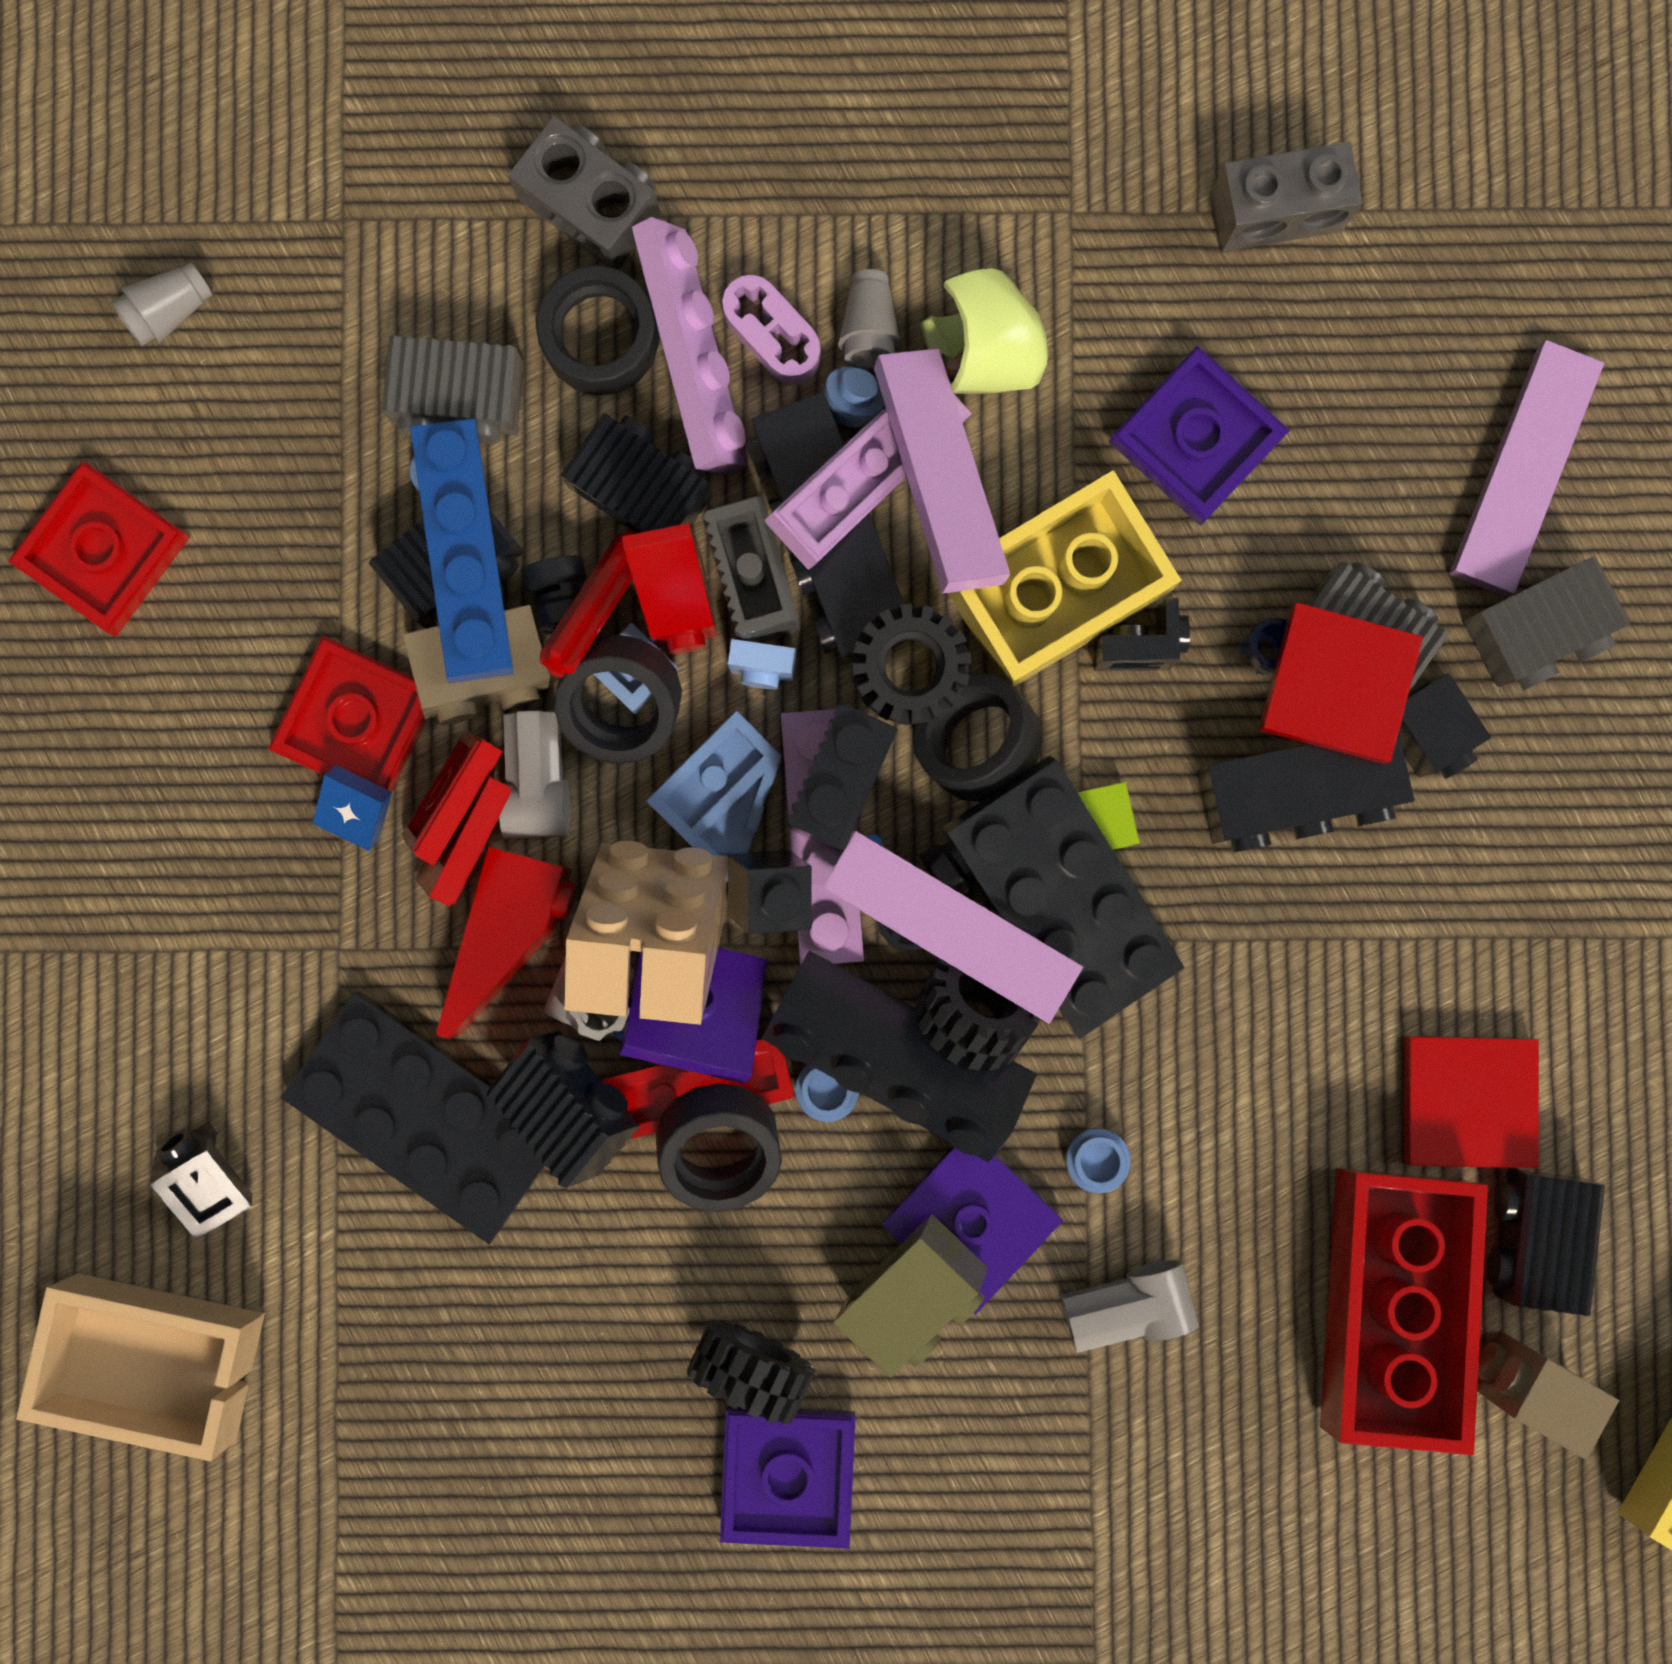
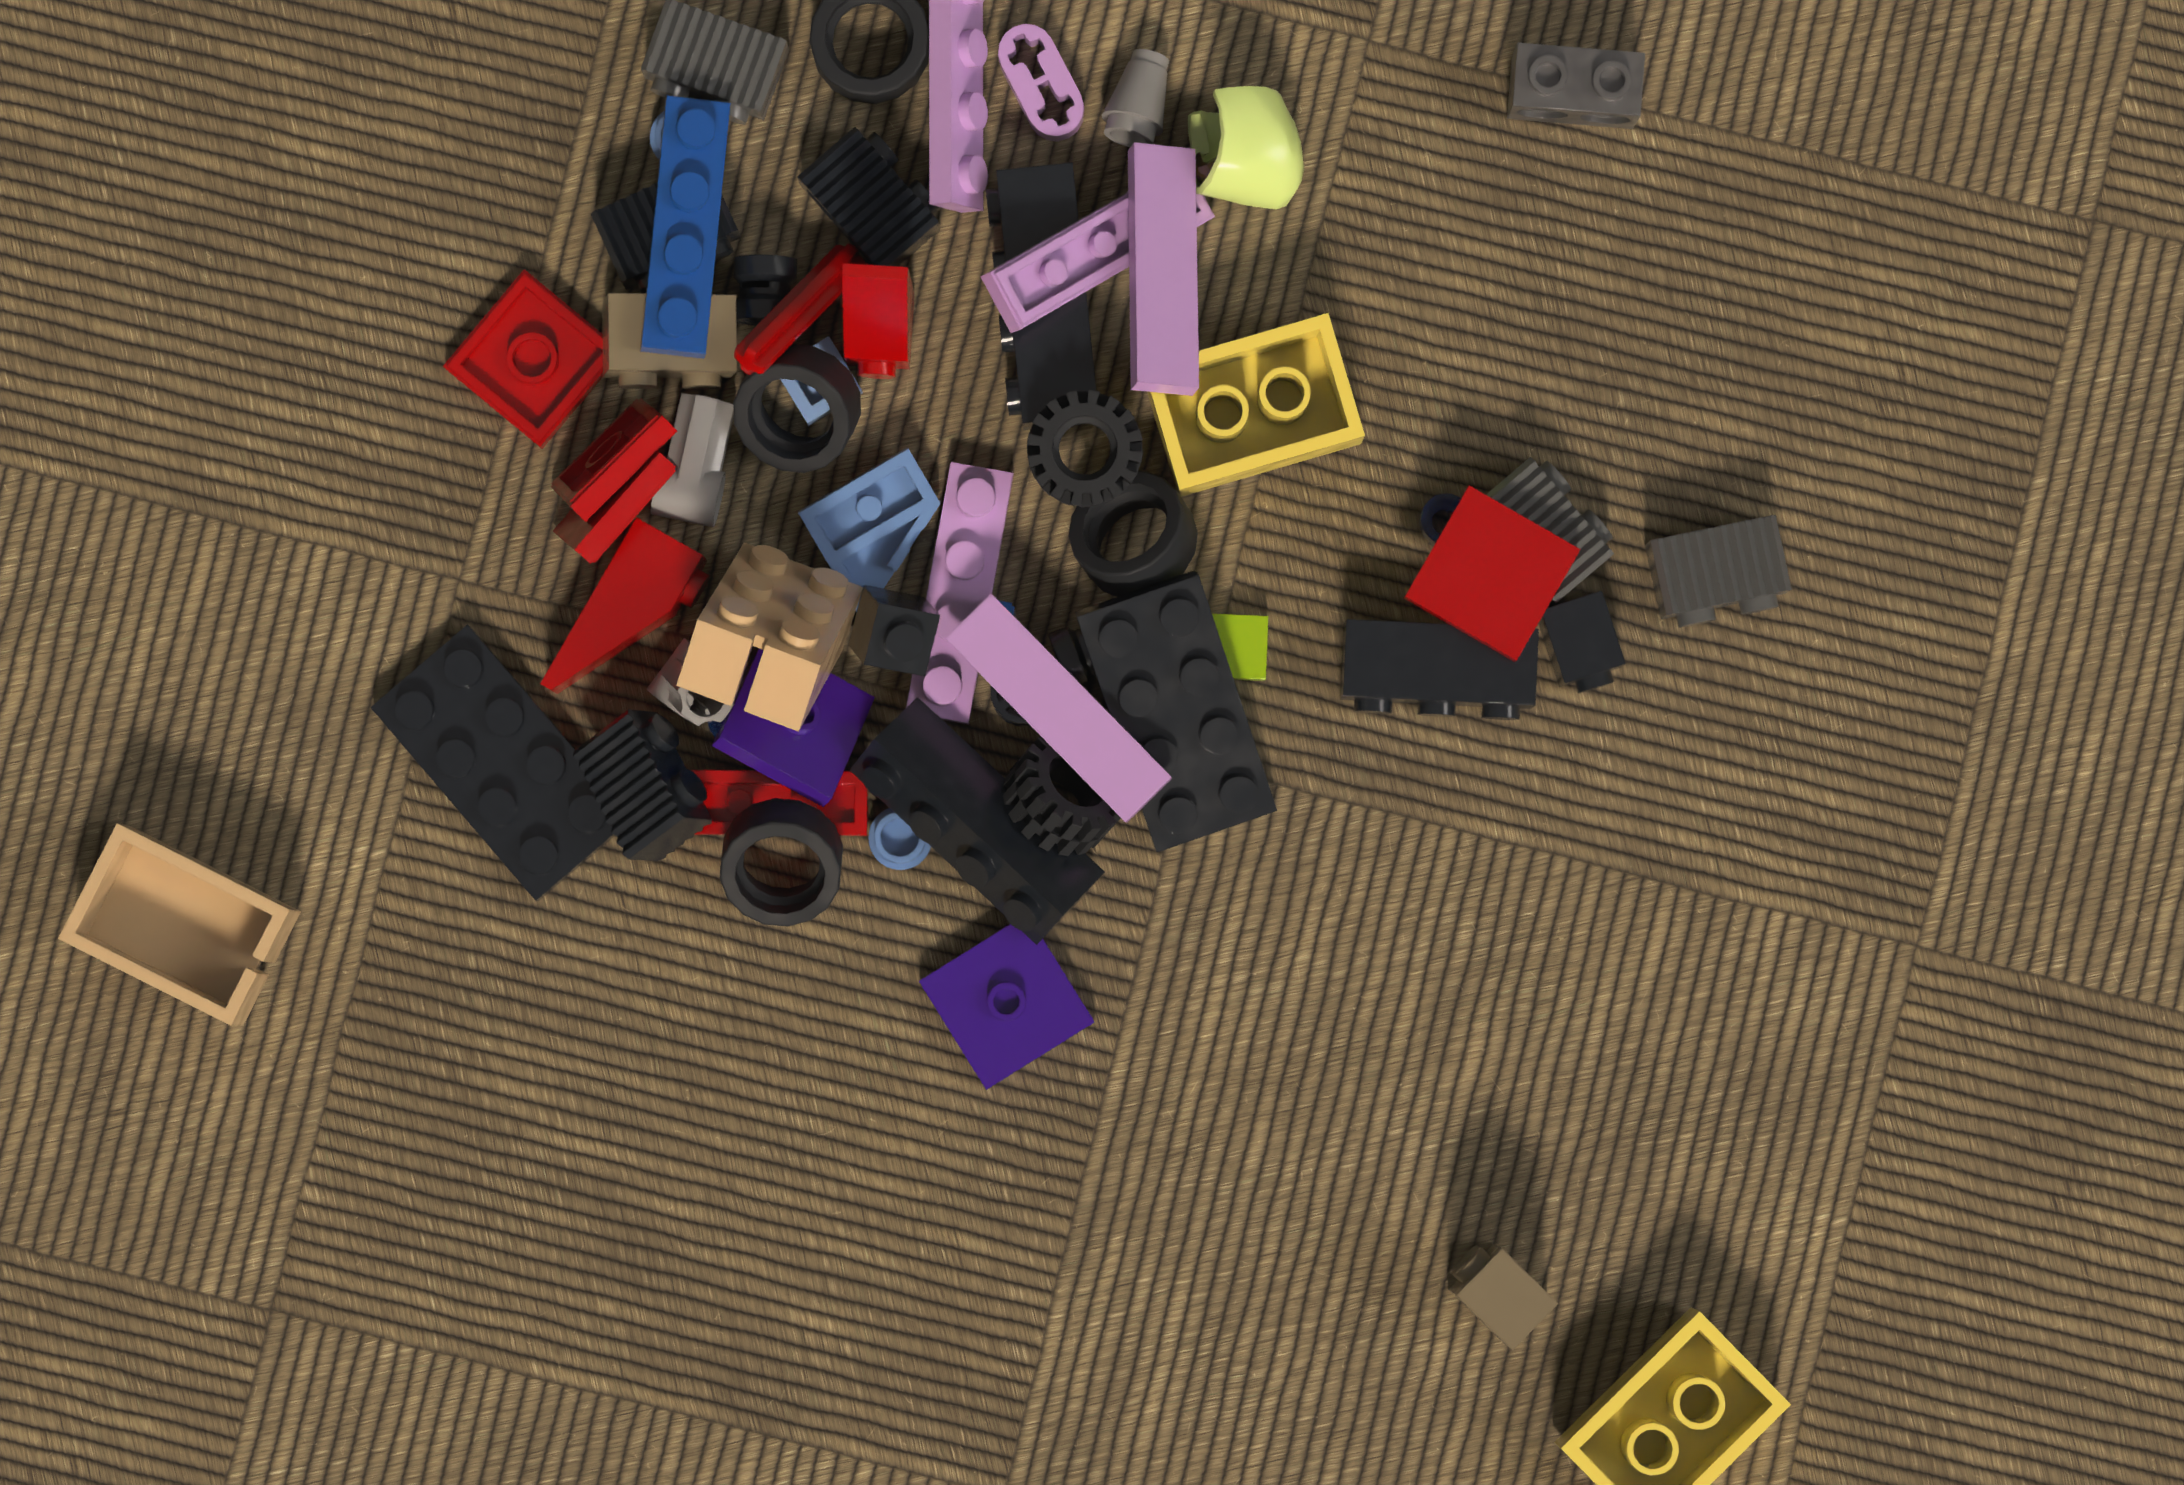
camera: 10 degrees right, 0 degrees up
(99, 549) = (326, 126): red tile -> none
(198, 1181) = (272, 766): bracket -> none
(352, 807) = (511, 445): blue tile -> none
(750, 1371) = (757, 1080): black tyre -> none
(751, 571) = (957, 318): dark grey brick -> none
(761, 663) = (944, 409): light blue plate -> none
(788, 1479) = (765, 1196): dark purple plate -> none
(841, 777) = (991, 539): black brick -> none
(853, 396) = (1101, 169): medium blue plate -> none
(913, 1297) = (928, 1051): olive brick -> none
(1098, 1160) = (1144, 974): medium blue plate -> none
(1135, 650) = (1309, 486): black bracket -> none
(1147, 1304) = (1149, 1121): light grey piece -> none
(1198, 435) = (1430, 296): dark purple plate -> none
(1404, 1311) = (1396, 1185): red brick -> none
(1471, 1101) = (1521, 1012): red tile -> none
(1526, 468) = (1745, 412): lavender tile -> none
(1546, 1241) = (1553, 1160): black brick -> none

